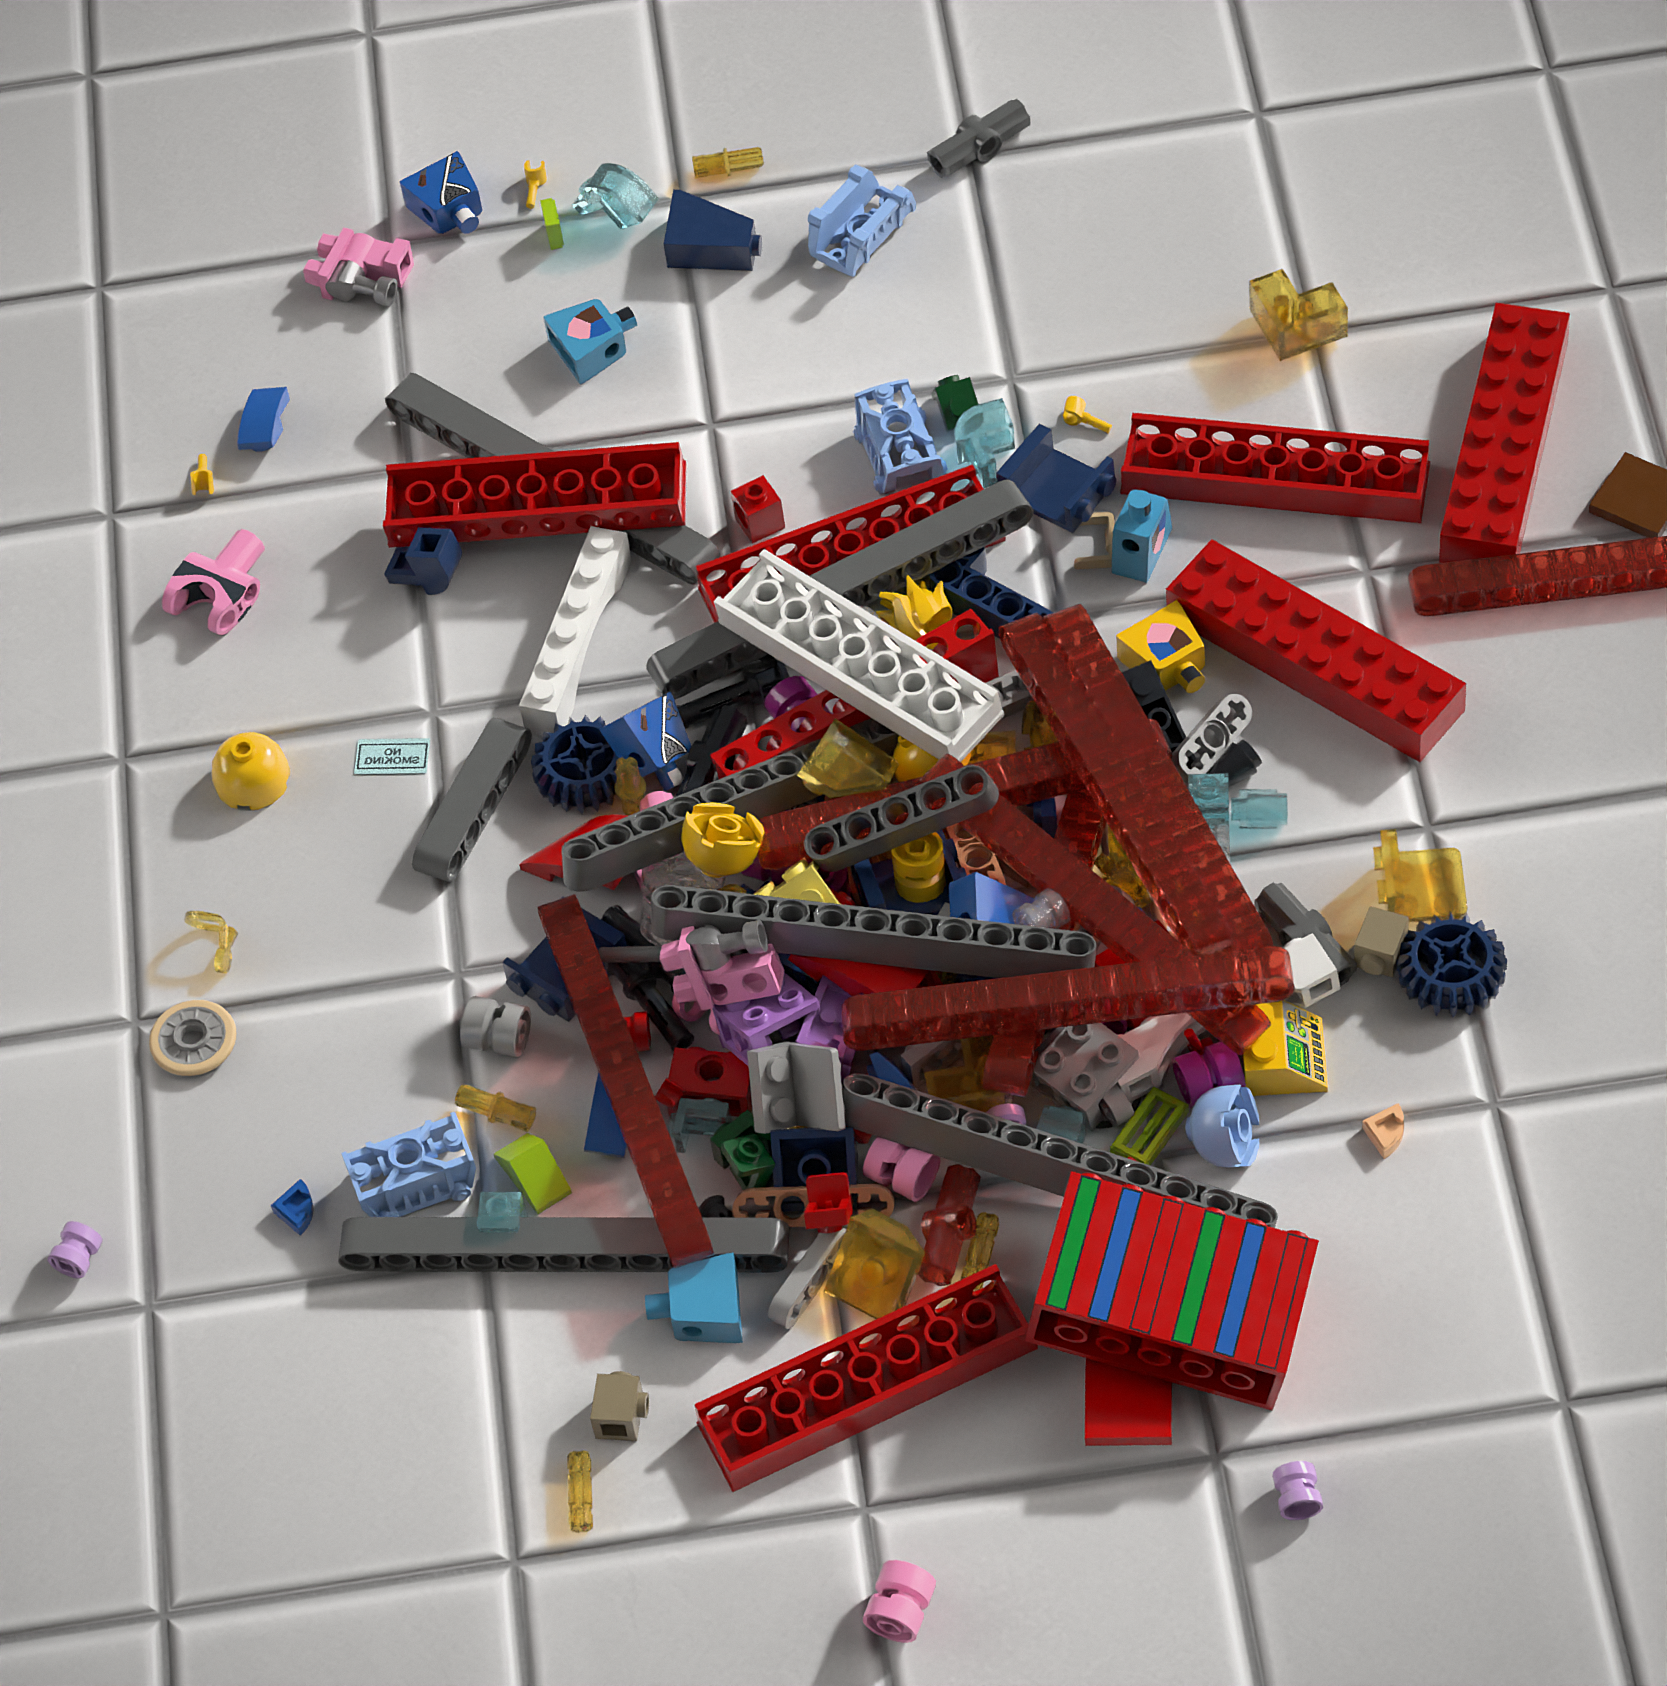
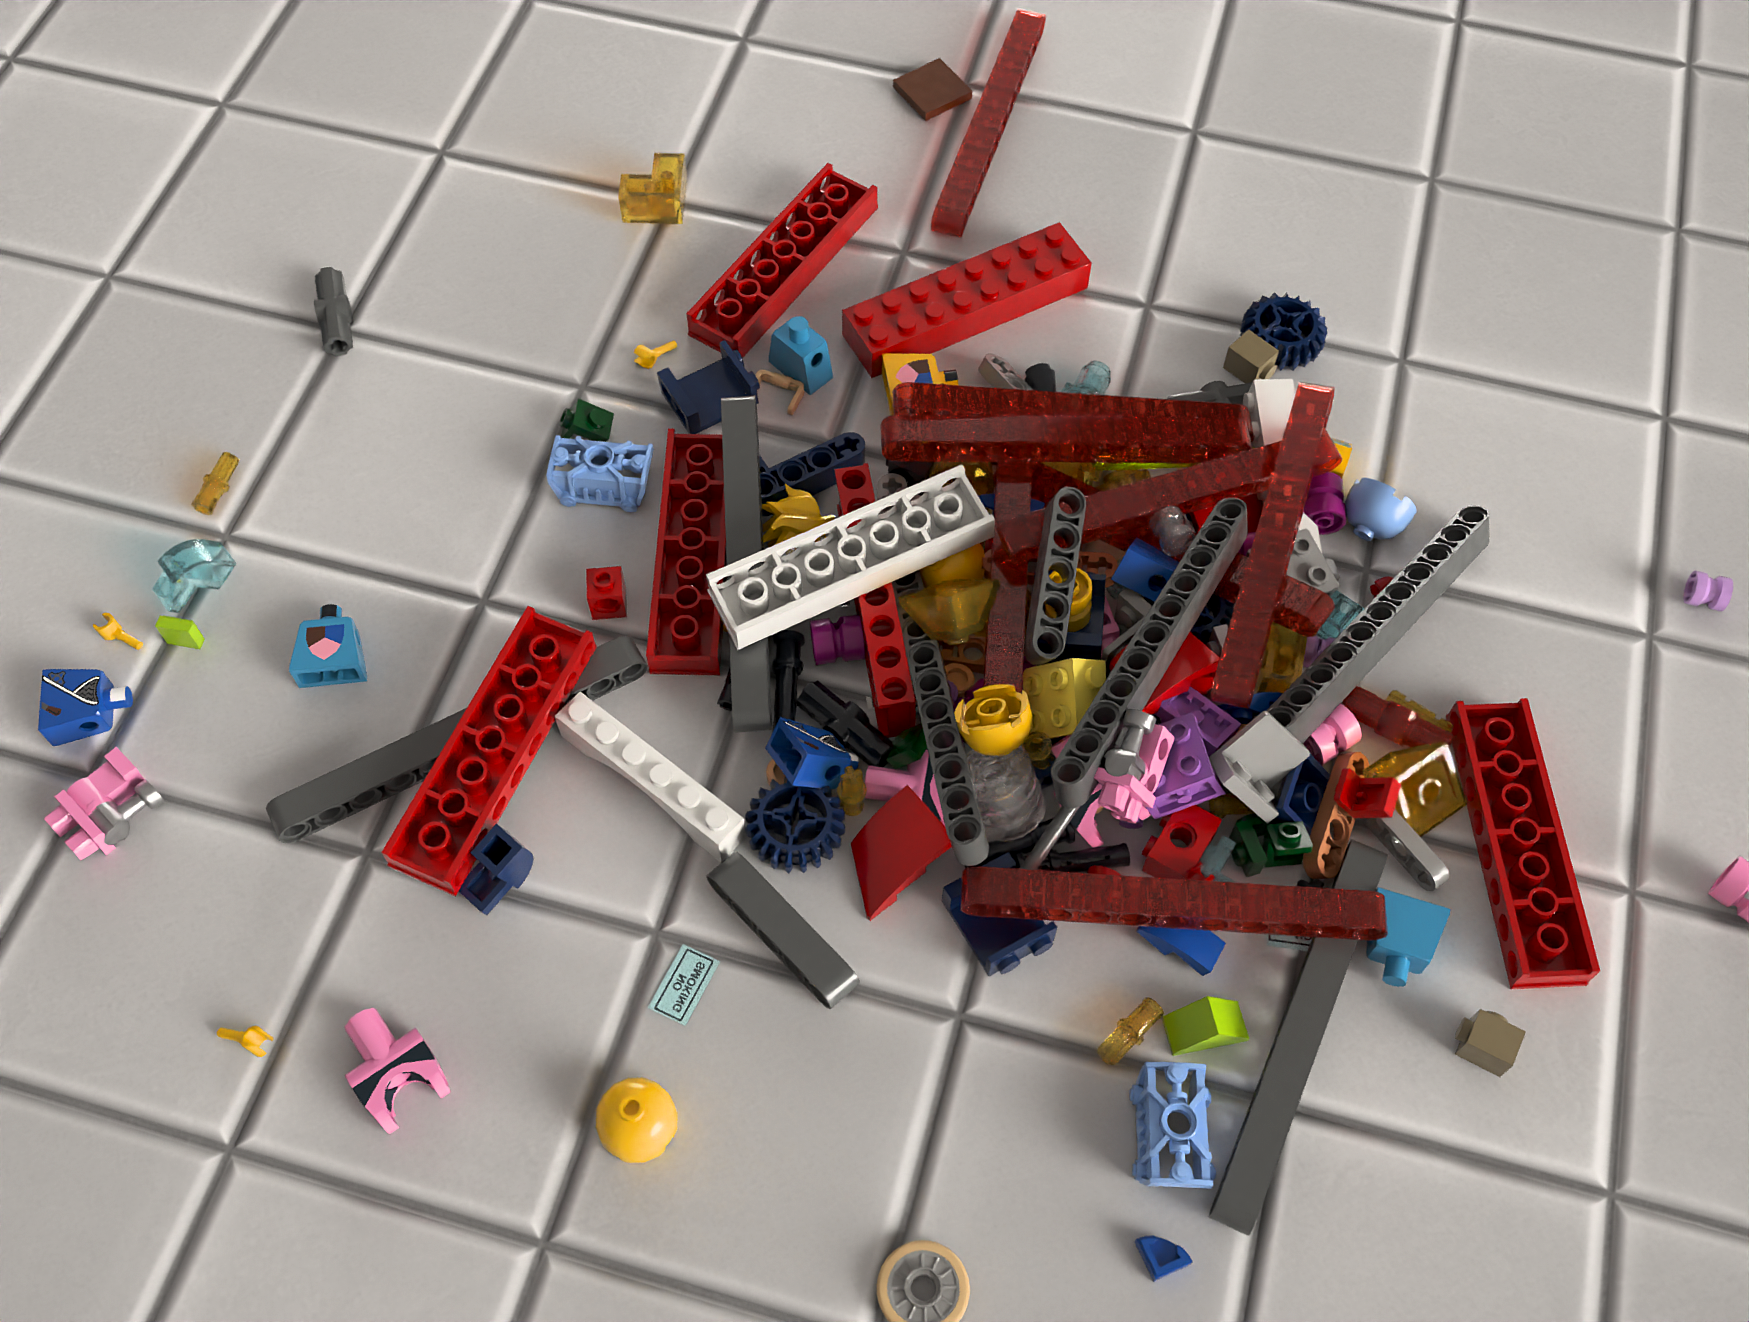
camera: 75 degrees left, 5 degrees up
(223, 955) = (806, 1214): clear yellow piece -> none
(261, 419) = (220, 955): blue slope -> none
(500, 1211) = (1262, 1063): clear light blue bracket -> none
(501, 1027) = (1046, 1001): light grey wheel -> none
(579, 1491) = (1560, 1108): clear yellow axle -> none
(708, 236) = (286, 523): dark blue slope -> none
(844, 214) = (377, 406): light blue piece -> none
(981, 435) = (634, 418): clear light blue brick -> none
(1126, 1407) = (1600, 665): red slope -> none
(1172, 1290) = (1533, 590): red brick -> none
(1181, 1110) = (1349, 578): lime tile -> none
(1385, 1129) = (1402, 426): light nougat tile -> none
(1419, 880) = (1201, 323): clear yellow bracket -> none
(1505, 434) = (844, 129): red brick -> none

